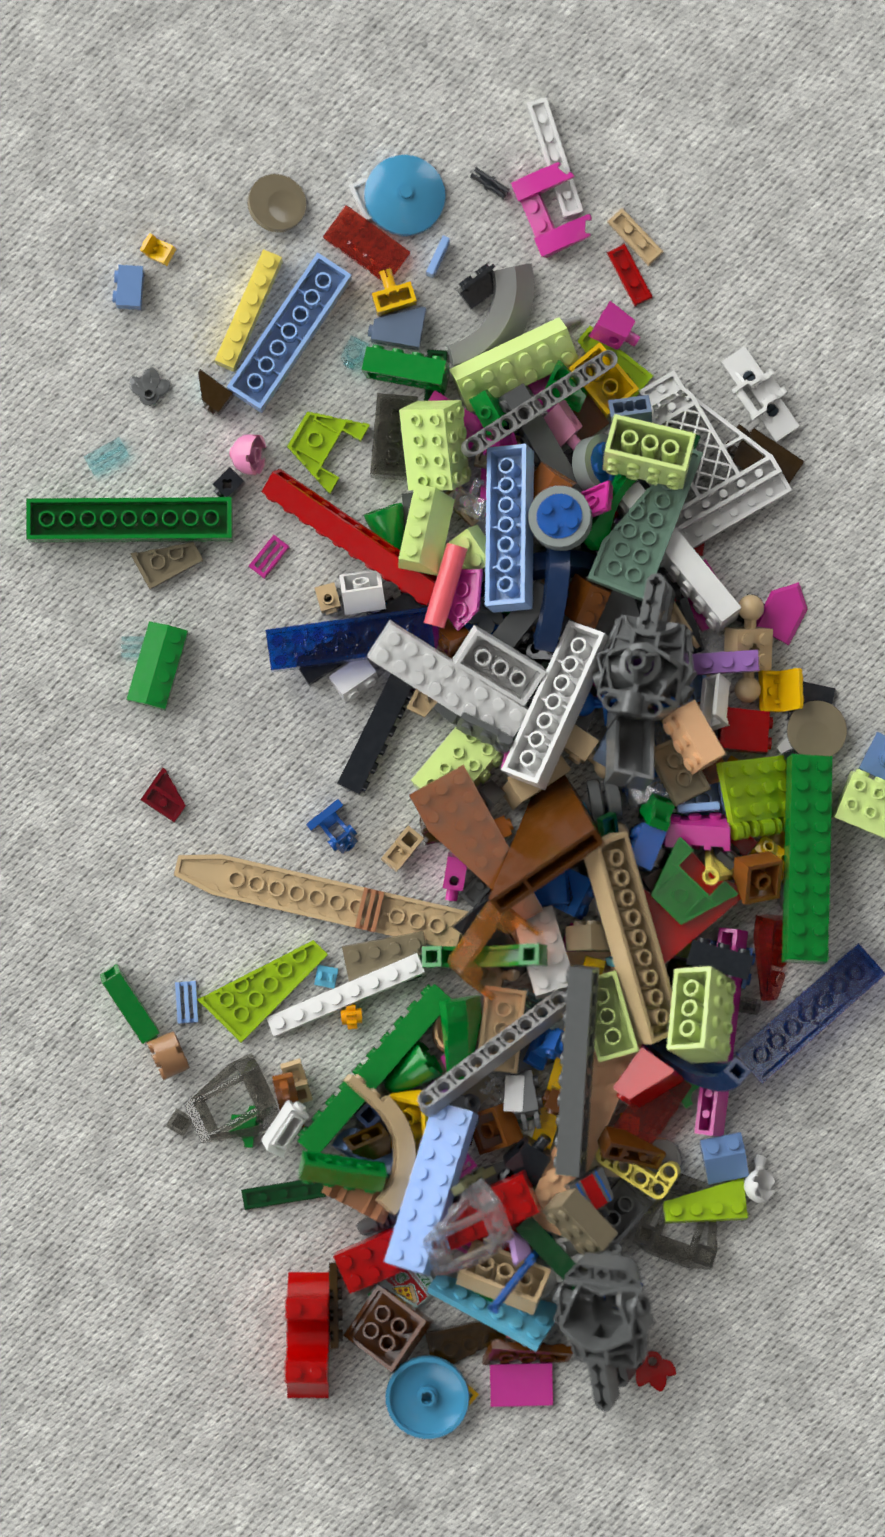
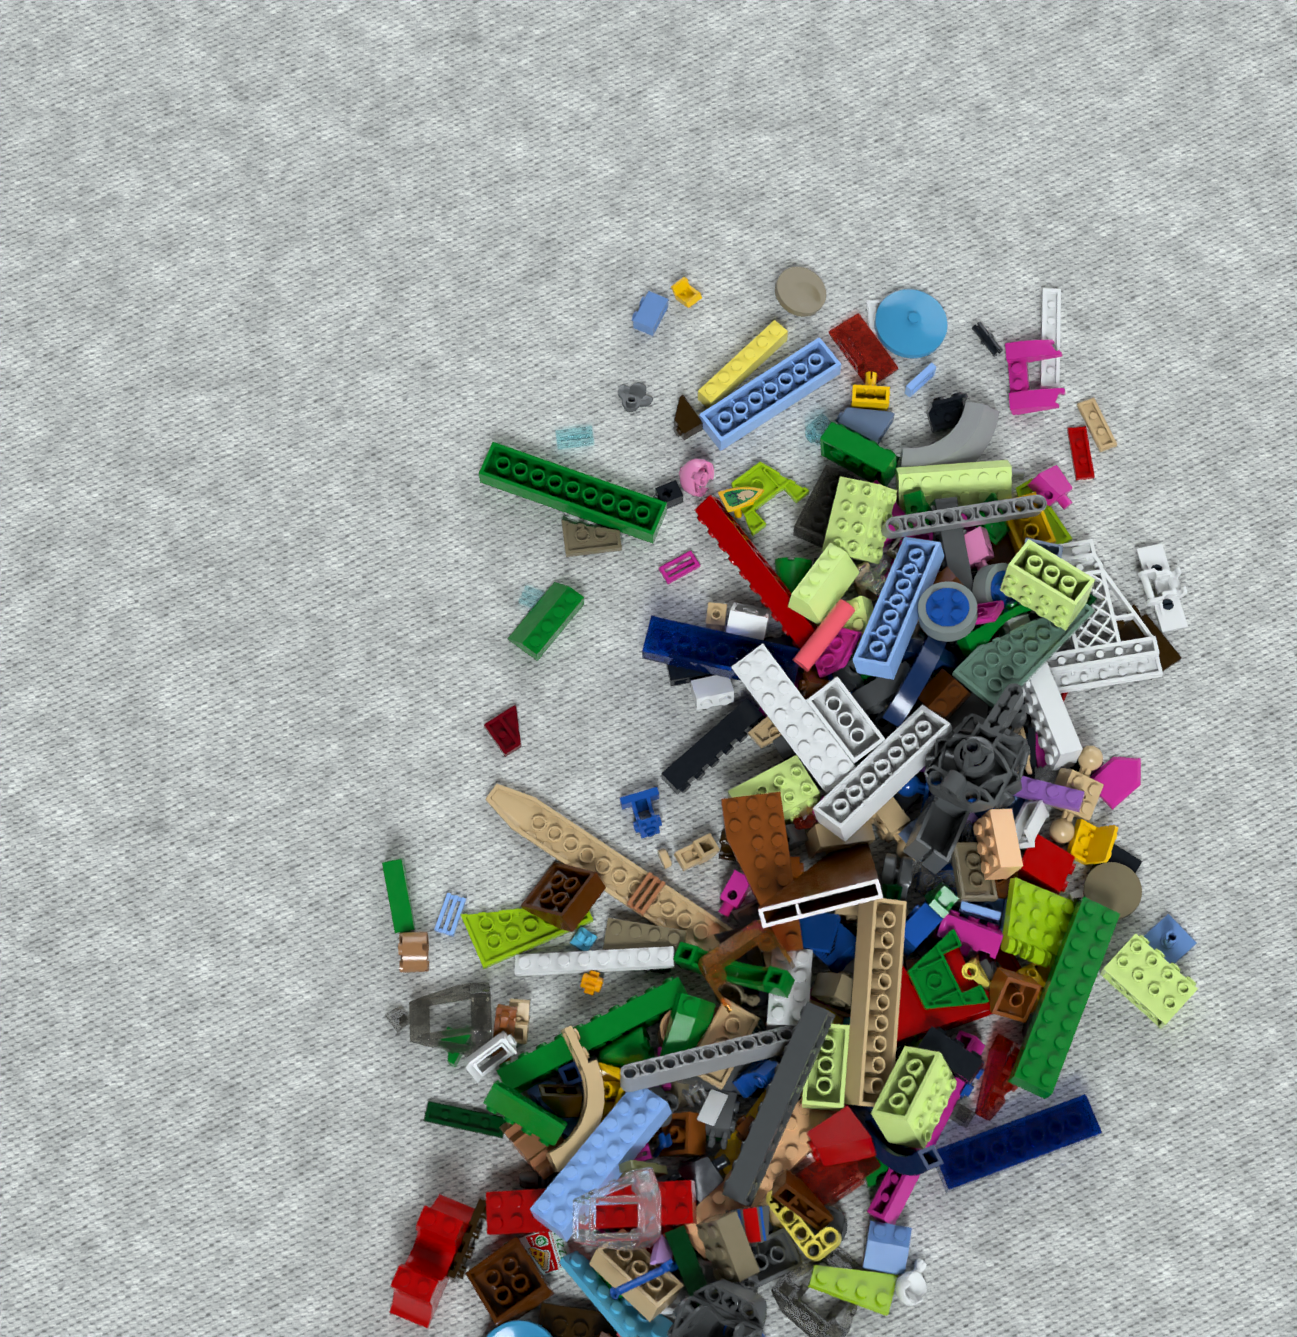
camera: 25 degrees right, 15 degrees down
(291, 943) = (564, 895): none -> reddish brown slope
(302, 462) = (738, 498): none -> shield
(372, 865) = (664, 858): none -> tan tile
(481, 1141) = (665, 1141): none -> blue hand
(485, 732) = (810, 771): dark grey hinge -> none
(499, 781) = (804, 824): none -> clear red arm

